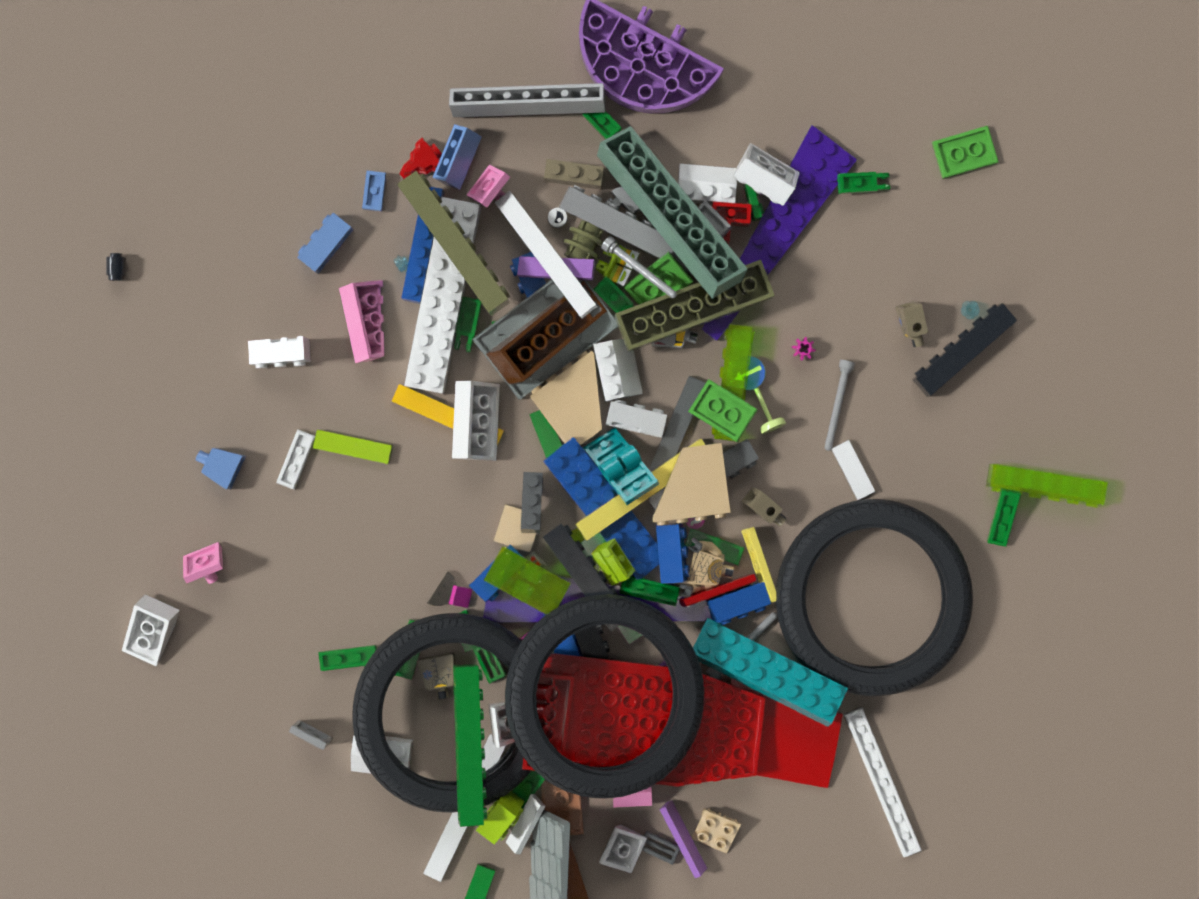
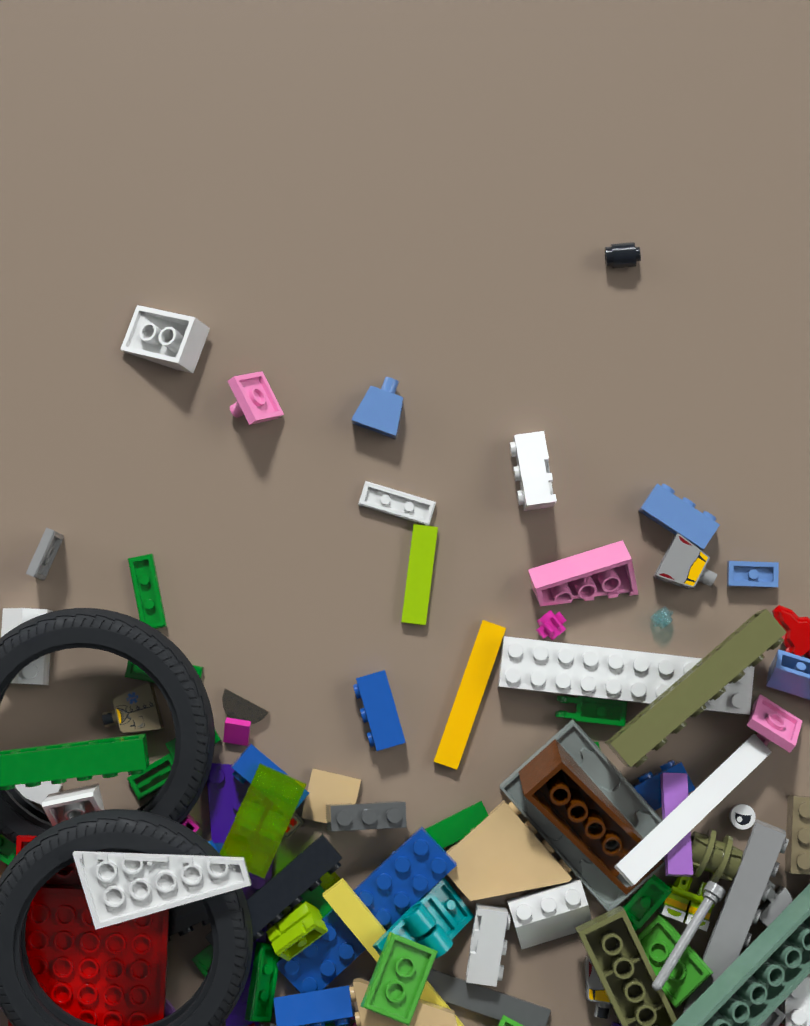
camera: 85 degrees right, 5 degrees down
(362, 242) = (684, 565): none -> light grey torso
(399, 349) = (551, 625): none -> dark pink gear
(419, 259) = (667, 641): blue brick -> none
(453, 486) = (379, 711): none -> blue brick
(475, 420) = (467, 732): white slope -> none
(561, 676) = (141, 884): none -> white wing
(652, 487) = (399, 978): none -> bright green tile

